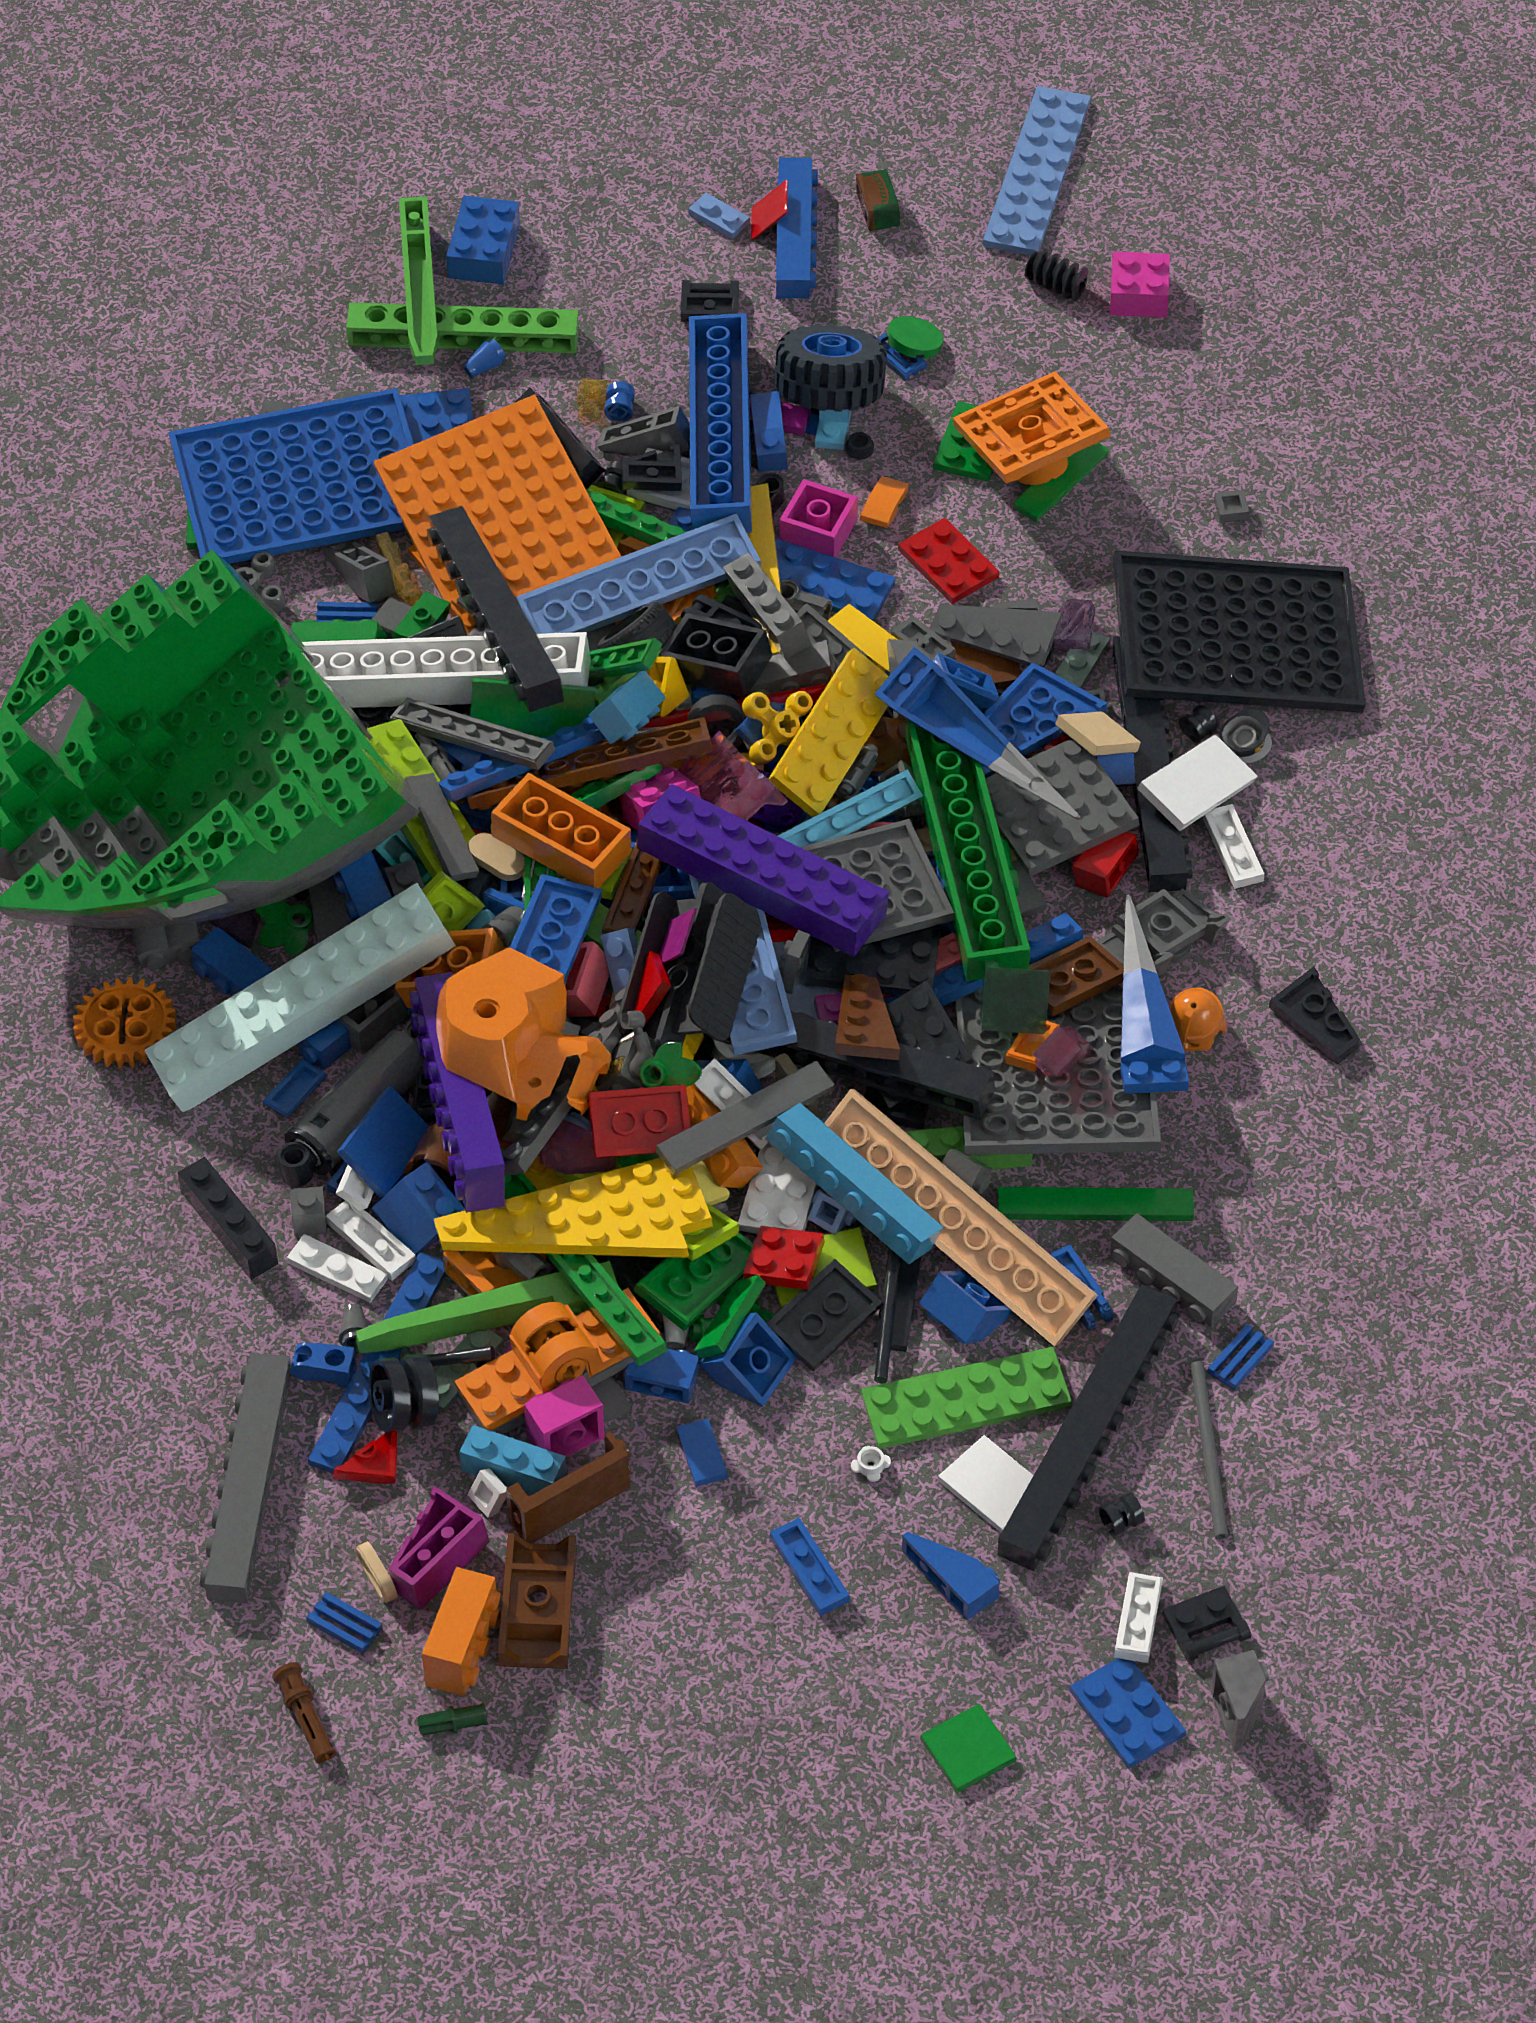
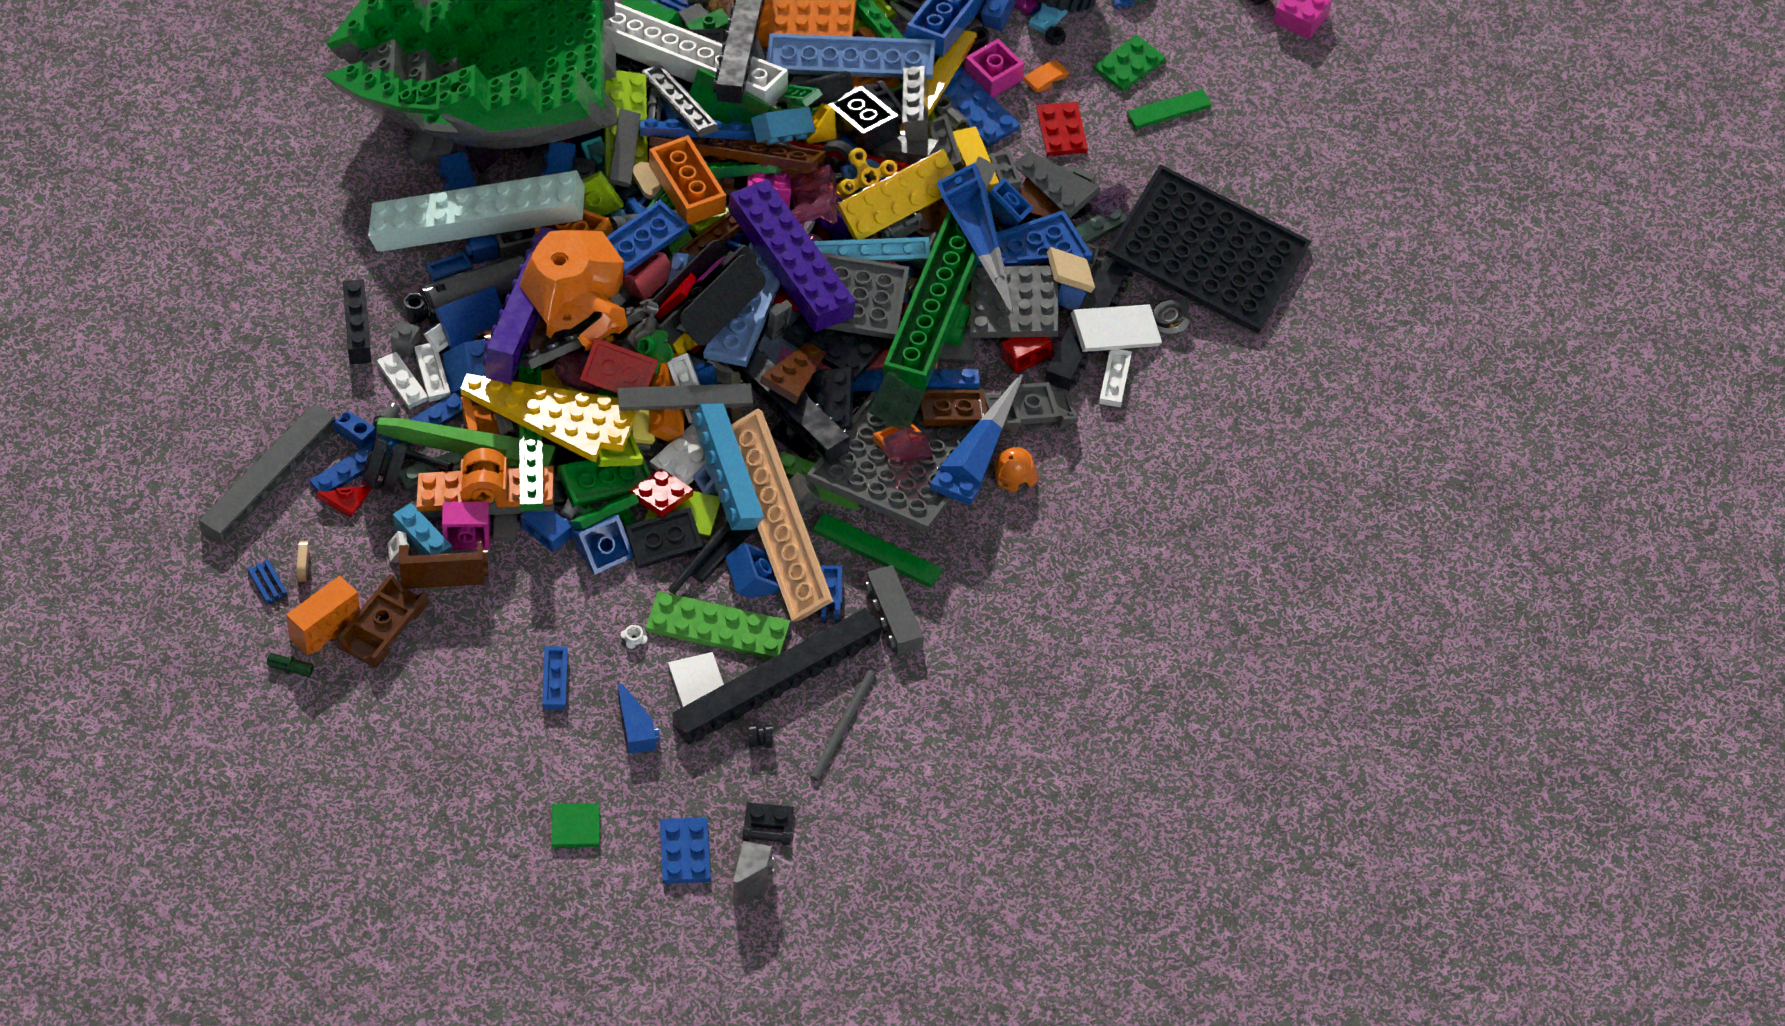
camera: 25 degrees right, 0 degrees up
(97, 1020) = (375, 182): orange gear -> none
(281, 929) = (506, 166): green plate -> none
(299, 1699) = (211, 612): reddish brown pin -> none
(443, 1539) = (352, 560): magenta wedge -> none
(701, 1452) = (539, 583): blue tile -> none
(1032, 430) = (1160, 69): orange piece -> none
(1138, 1617) = (728, 800): white tile -> none
(1198, 723) = (1146, 294): black wheel -> none
(1231, 506) = (1264, 171): dark grey plate -> none
(1255, 1338) = (898, 677): blue tile -> none
(1313, 1014) = (1093, 501): black wing -> none

